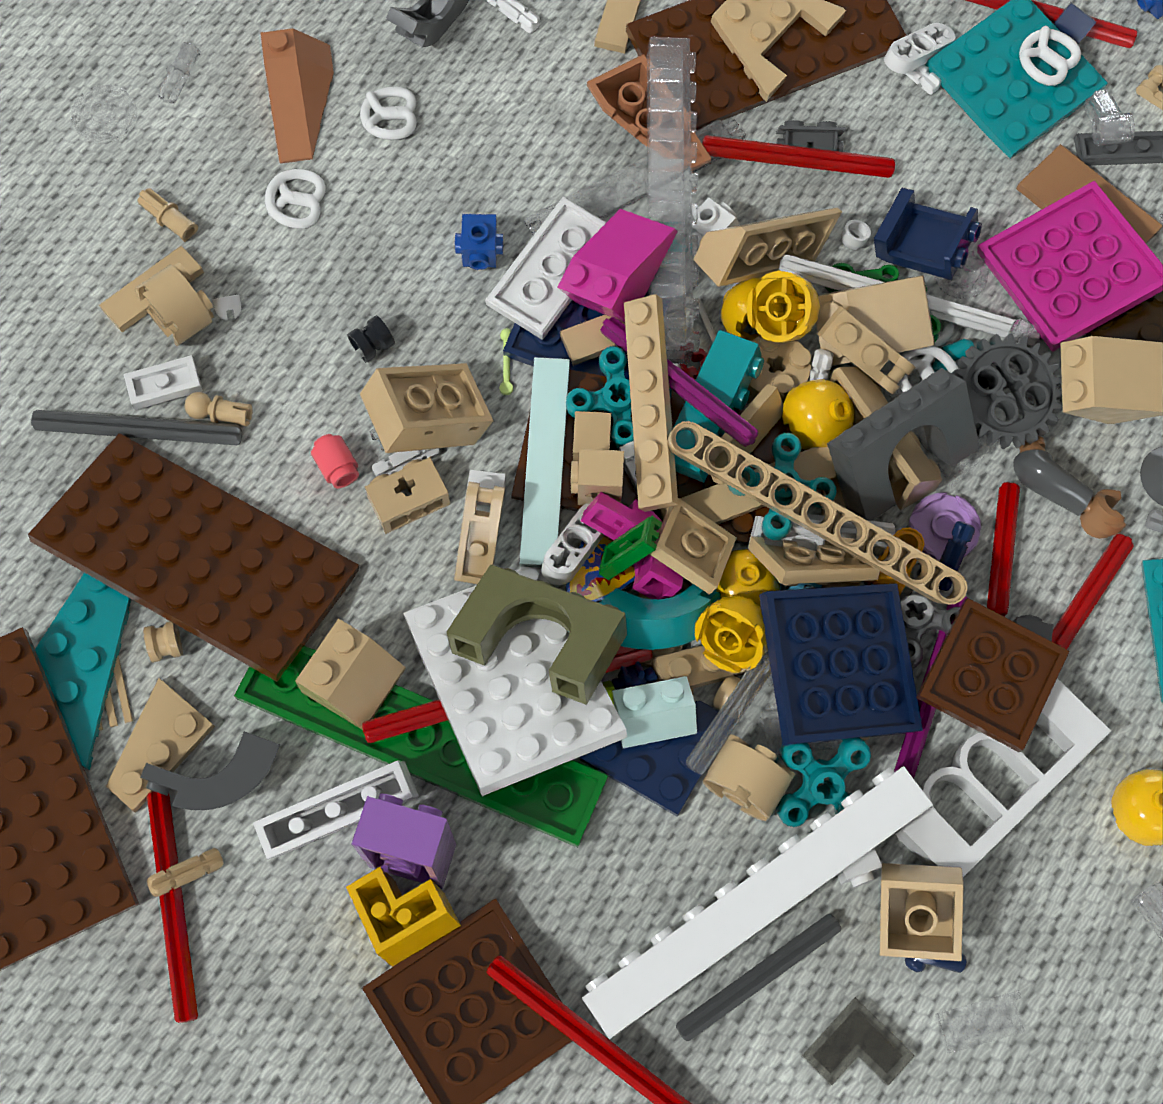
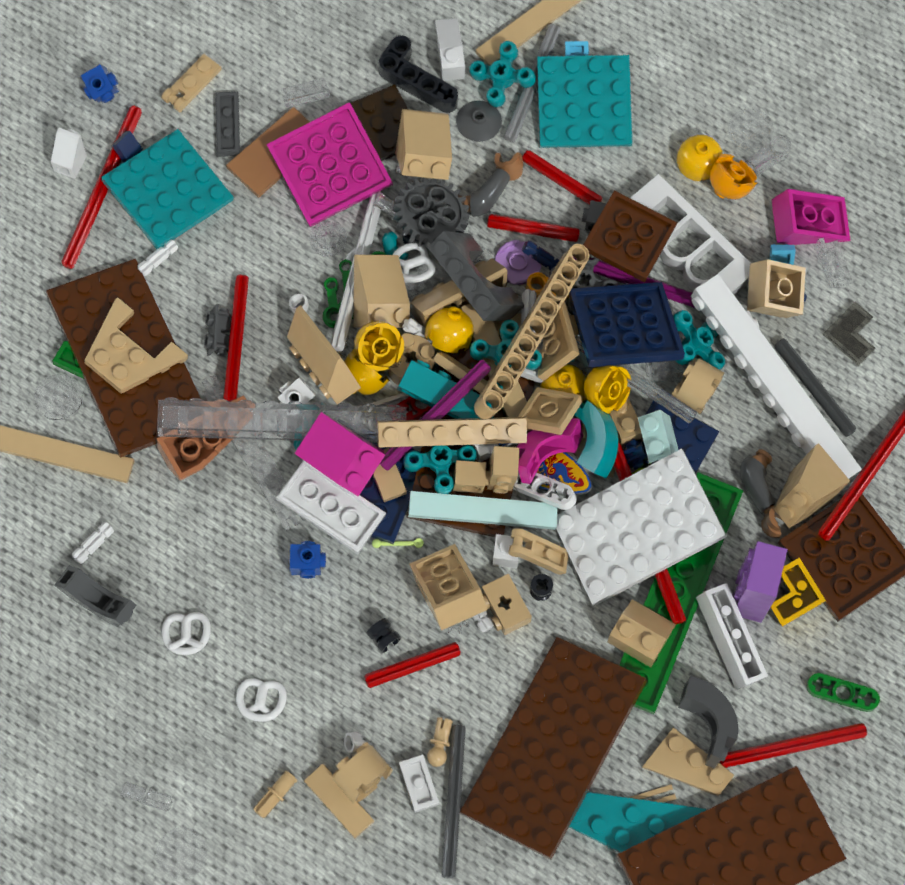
camera: 90 degrees left, 0 degrees up
(163, 641) = (617, 764): tan wheel -> none
(185, 872) = (774, 734): tan axle -> none
(246, 1021) = (859, 703): none -> green beam
(298, 87) = (161, 703): nougat wedge -> none
(330, 378) = (412, 665): none -> red axle
(335, 460) = (480, 655): coral brick -> none
(433, 533) = (540, 580): none -> black bush
(509, 598) = (613, 471): olive arch -> none
(574, 945) = (810, 487): none -> tan slope
(595, 862) = (753, 478): none -> dark grey piece
(630, 548) = (563, 467): green tile -> none
(725, 690) = (639, 398): tan tile -> none
(865, 349) = (406, 296): tan plate -> none
(918, 47) = (148, 258): white beam -> none
(926, 237) = (305, 255): dark blue panel -> none
(985, 932) = (783, 253): none -> medium azure tile
(1048, 55) = (161, 163): white piece -> none
(1061, 987) = (807, 216): none -> dark pink slope
(1108, 121) = (217, 130): clear piece -> none
(1119, 852) = (731, 178): none -> light orange cylinder

